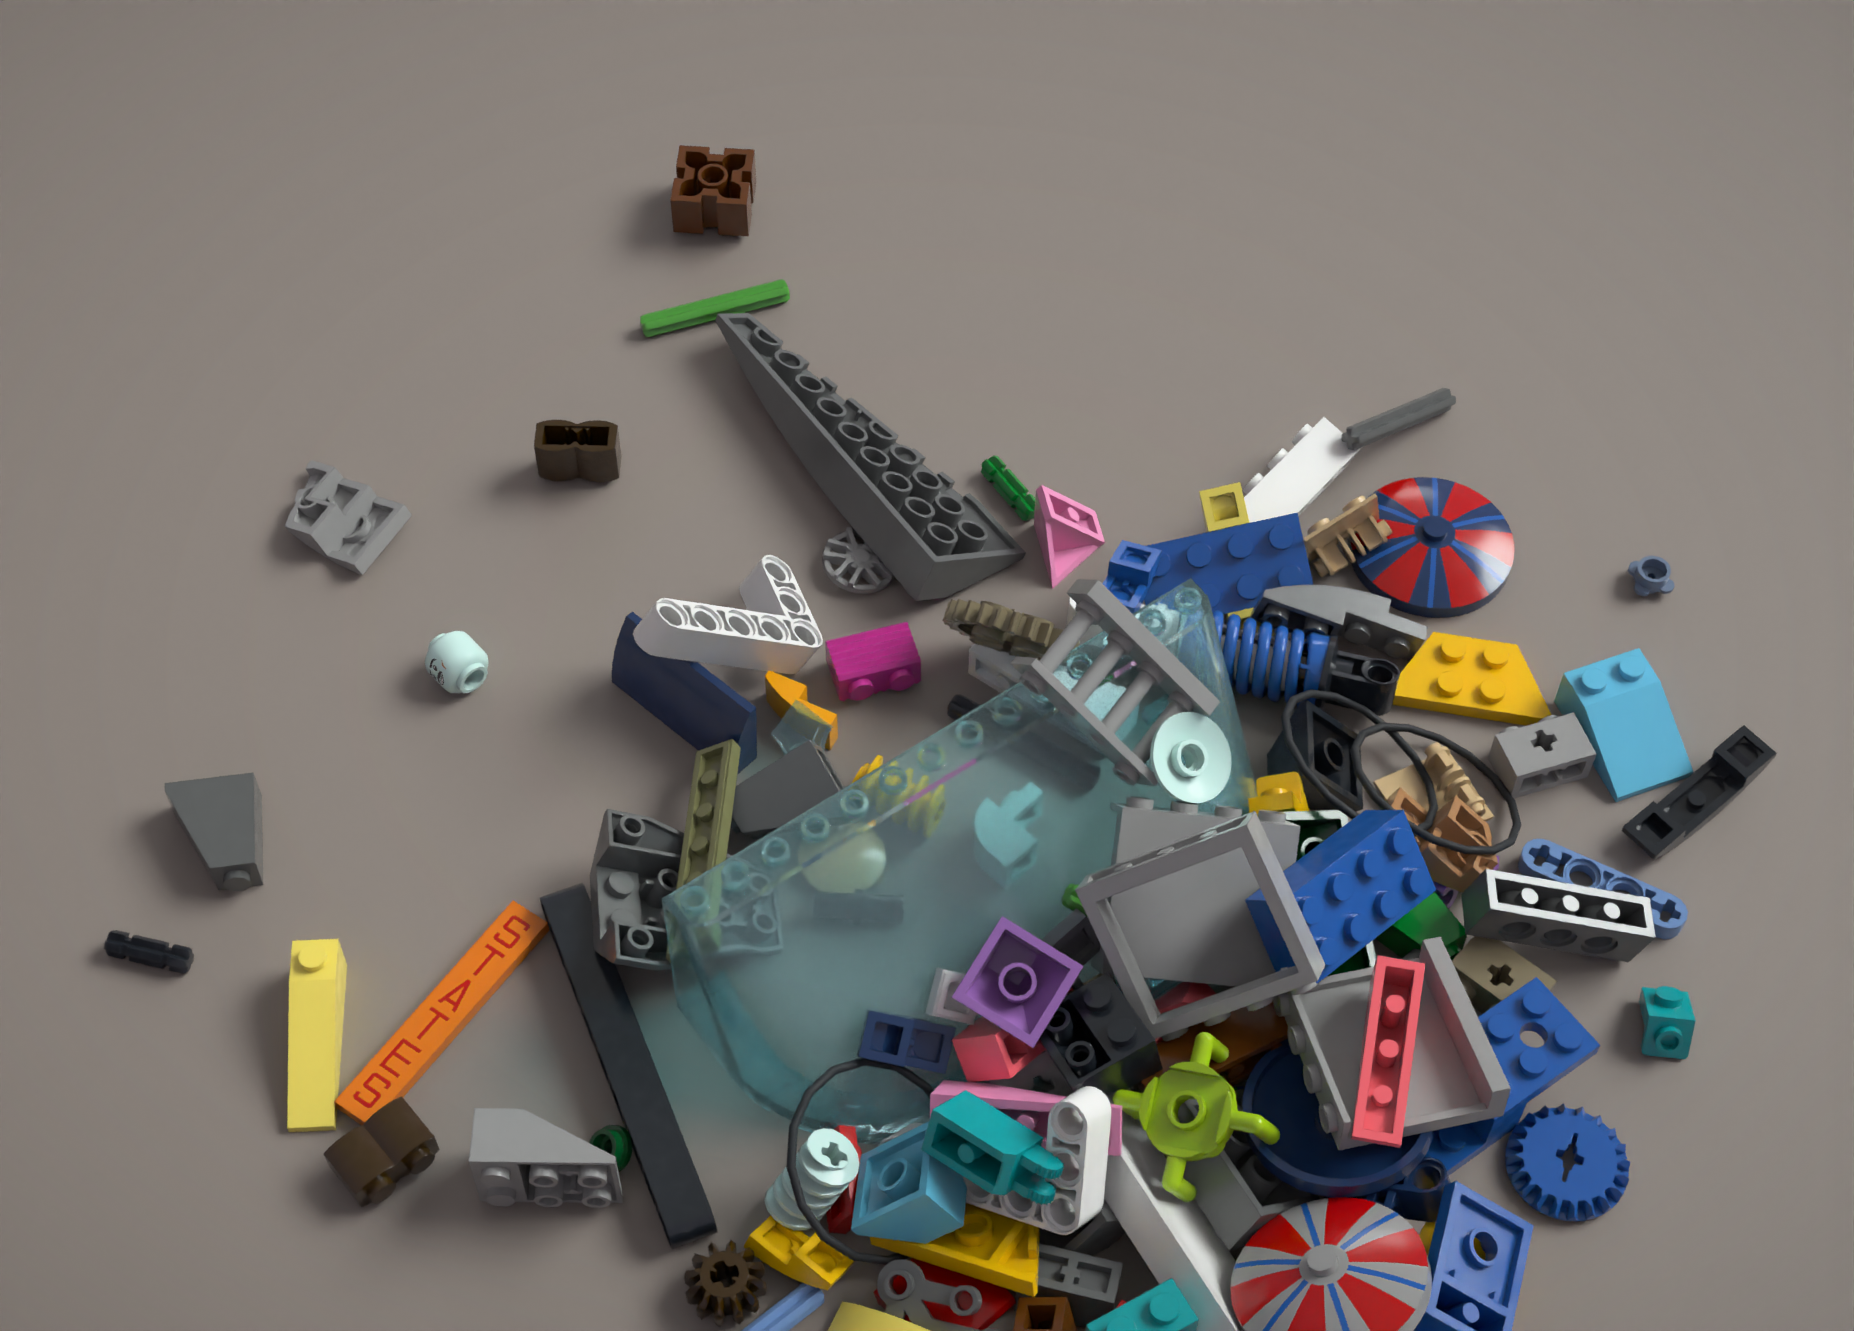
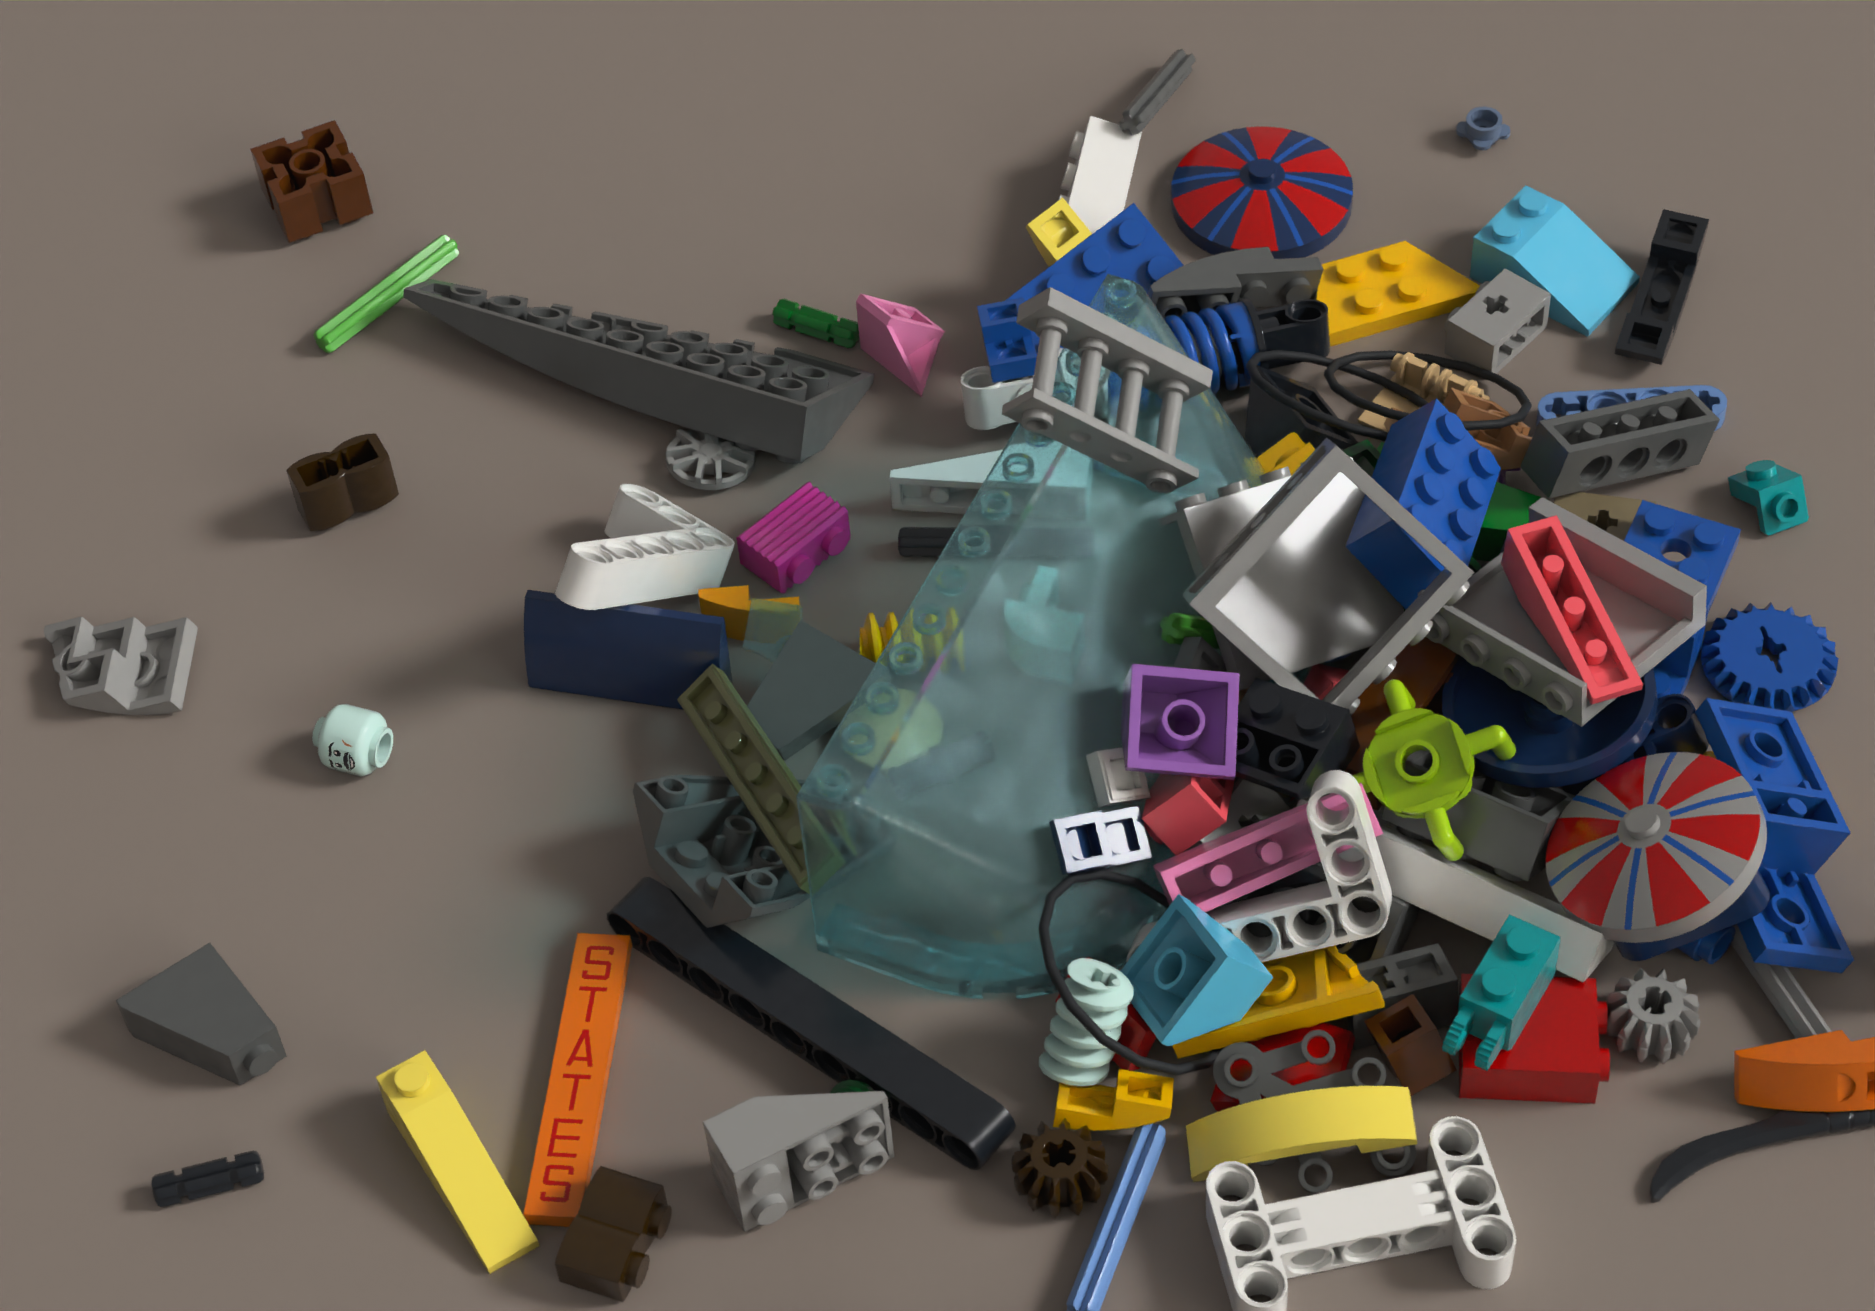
camera: 25 degrees left, 5 degrees down
(991, 1149) = (1263, 883): teal hinge -> none
(1002, 628) = (926, 434): dark tan gear -> none
(1205, 755) = (1214, 437): light aqua dish -> none
(1358, 518) = (1187, 209): tan hinge -> none

